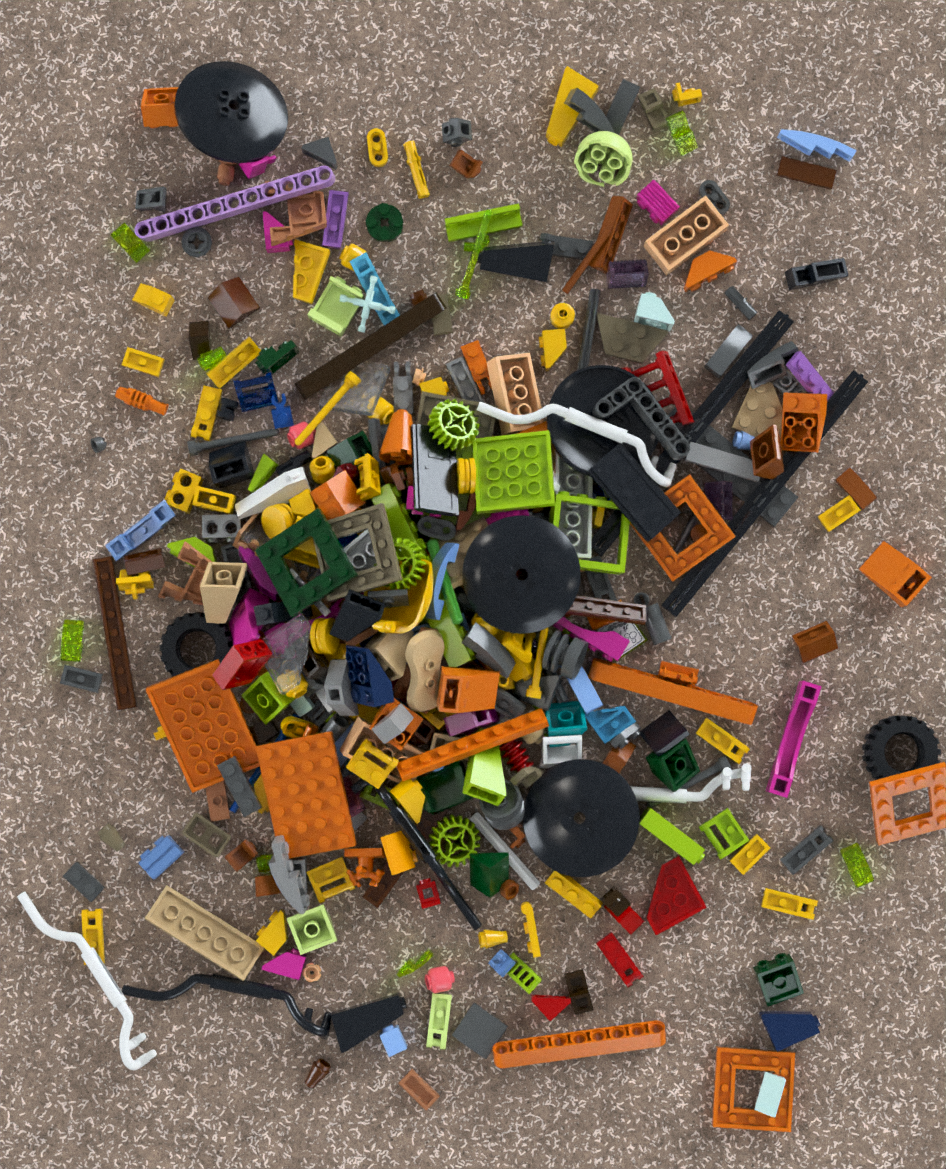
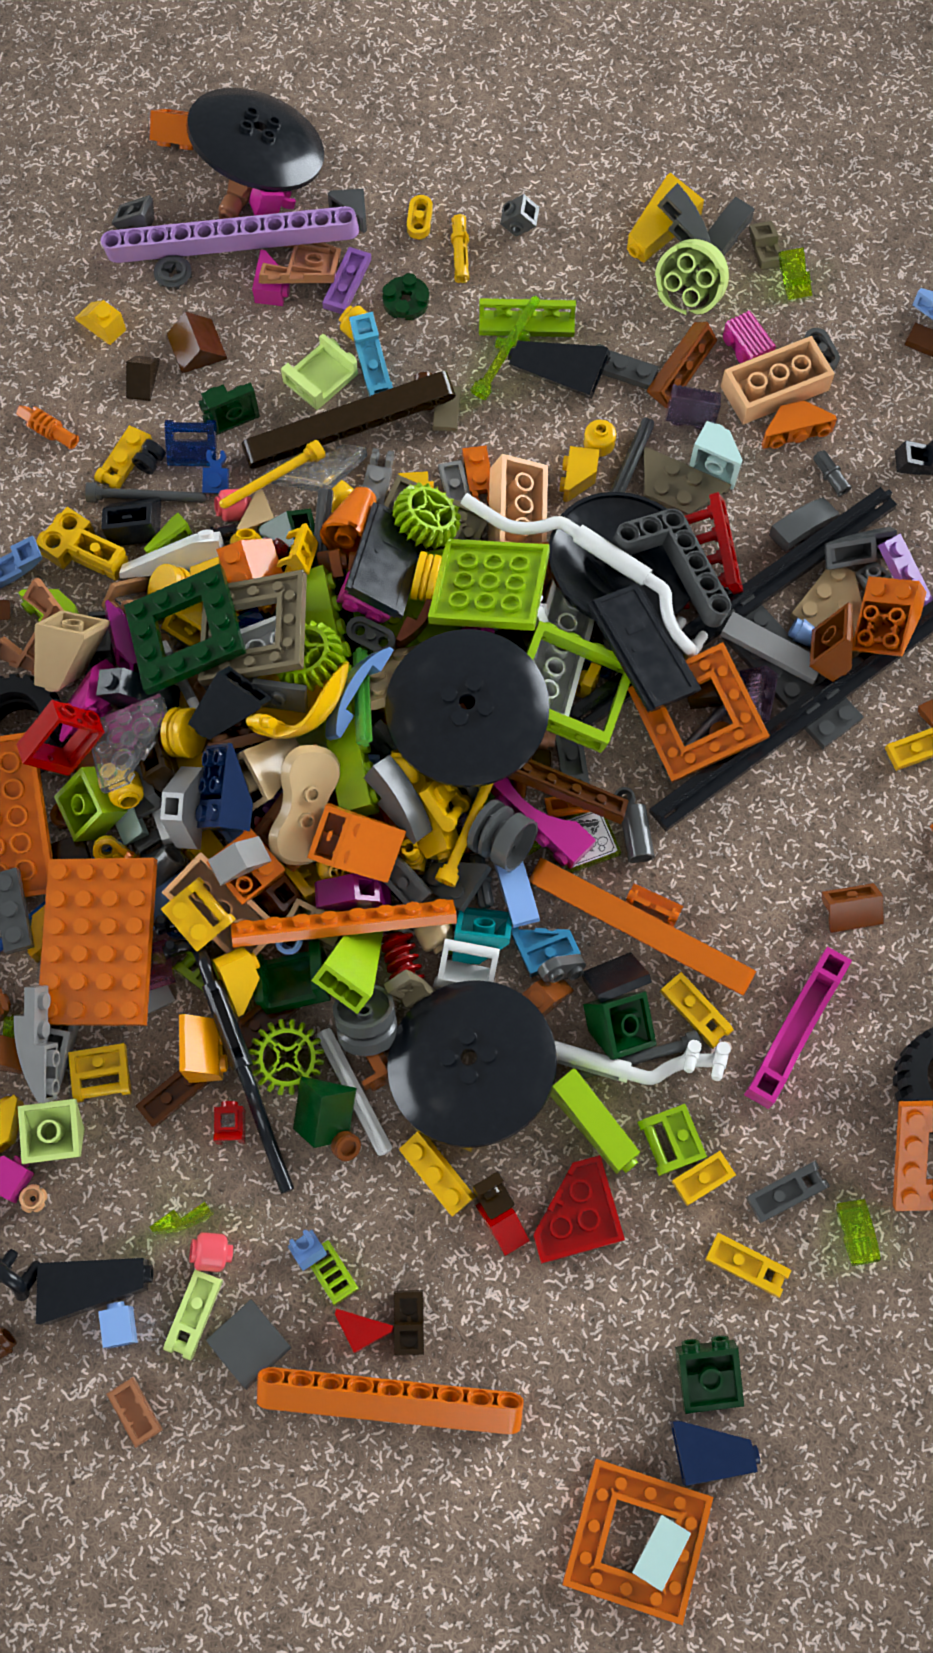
camera: 15 degrees right, 15 degrees down
(130, 242) = (93, 256): clear neon green slope -> none
(143, 362) = (63, 384): yellow plate -> none
(211, 358) = (147, 395): clear neon green cone -> none
(222, 523) = (97, 581): light grey brick -> none
(233, 362) = (171, 407): yellow plate -> none
(309, 268) = (299, 326): yellow wing -> none
(365, 865) = (150, 1057): orange piece -> none
(367, 304) = (359, 374): light aqua piece -> none
(418, 377) = (399, 467): light nougat plate -> none
(466, 165) = (521, 254): dark orange bracket -> none
(491, 938) = (303, 1210): yellow cone -> none
(530, 928) = (361, 1209): yellow plate -> none
(586, 261) = (645, 384): dark orange bar -> none
(619, 958) = (479, 1287): red plate -> none
(688, 97) = (810, 236): yellow bracket -> none

